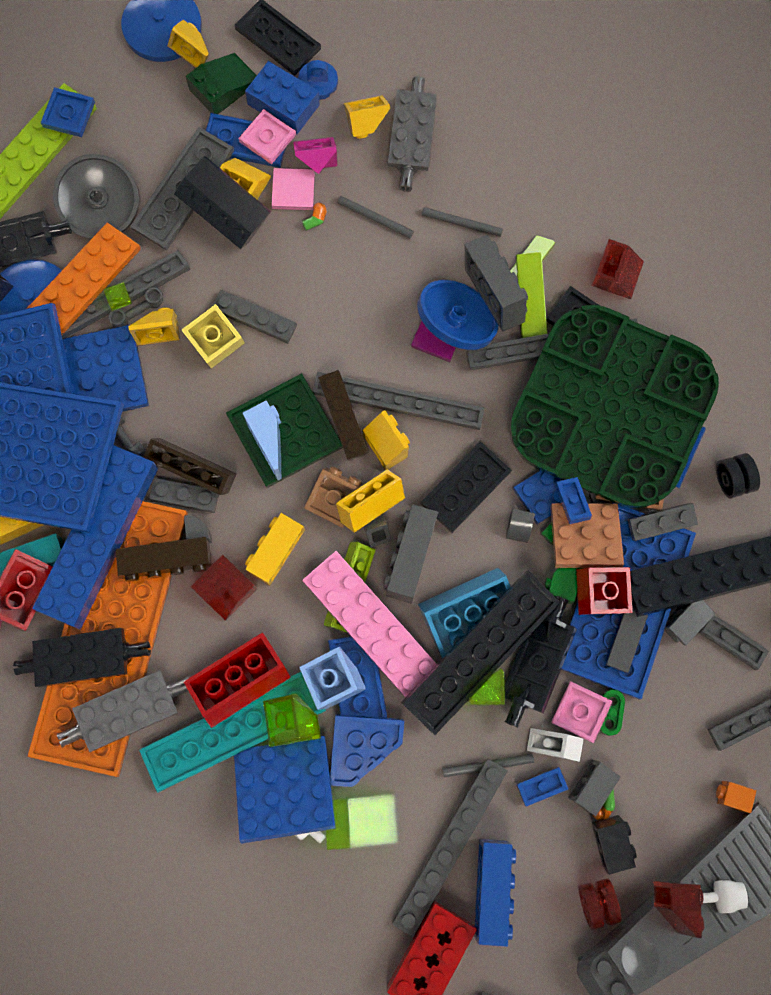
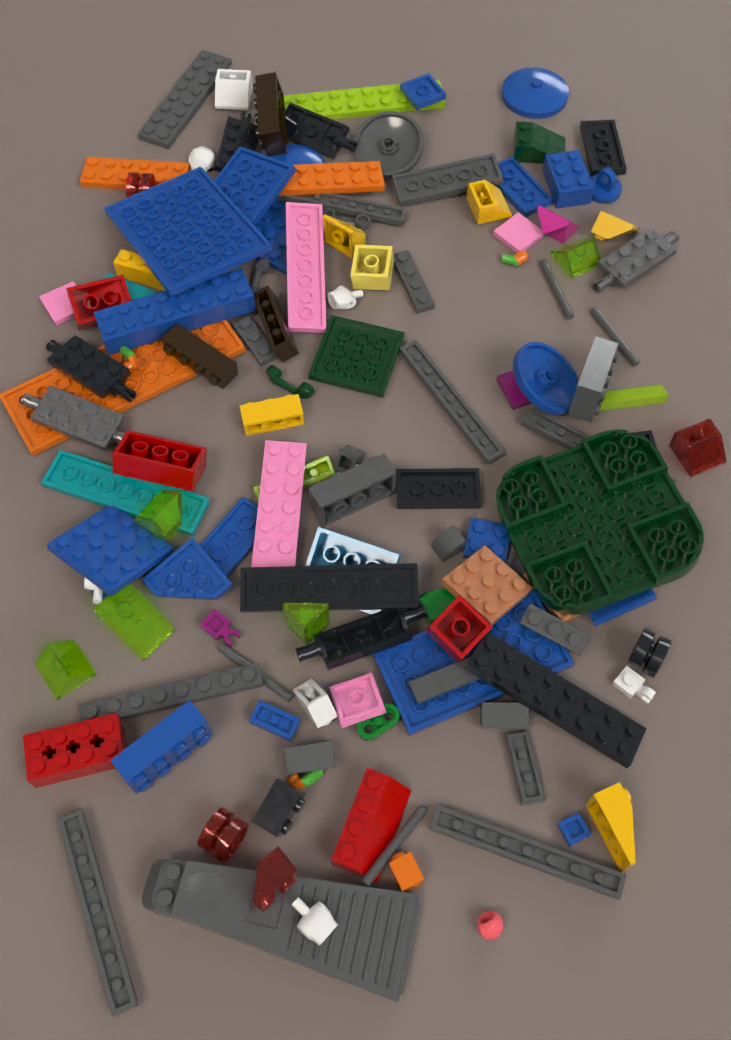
camera: 50 degrees right, 15 degrees down
(103, 613) = (130, 356): none -> arm
(117, 296) = (339, 201): clear neon green plate -> none
(155, 387) = (305, 268): none -> bright pink plate
(188, 43) = (537, 104): yellow slope -> none
(196, 528) = (239, 356): dark grey brick -> none
(216, 387) = (343, 298): none -> white piece
(222, 202) = (460, 199): black slope -> none
(224, 587) = (215, 407): clear red slope -> none
(264, 425) = (338, 340): light blue slope -> none
(267, 136) = (533, 192): bright pink tile -> none
(275, 503) = (305, 390): none -> dark green bar
(328, 491) = (344, 417): medium nougat plate -> none
(332, 678) = (215, 513): light blue slope -> none
(343, 415) = (402, 374): dark brown brick -> none
(349, 909) = (64, 667): none -> clear neon green slope
(362, 169) = (578, 256): none -> clear neon green slope
(370, 500) = (362, 435): yellow brick -> none
(386, 440) = (414, 413): yellow slope -> none
(425, 760) = (217, 626): none -> magenta plate
(531, 279) = (616, 406): lime slope -> none
(573, 500) = (500, 551): blue plate -> none
(681, 790) = (370, 823): none -> red slope
(711, 788) = (393, 846): none -> dark grey bar
(743, 509) = (632, 683): none -> white plate

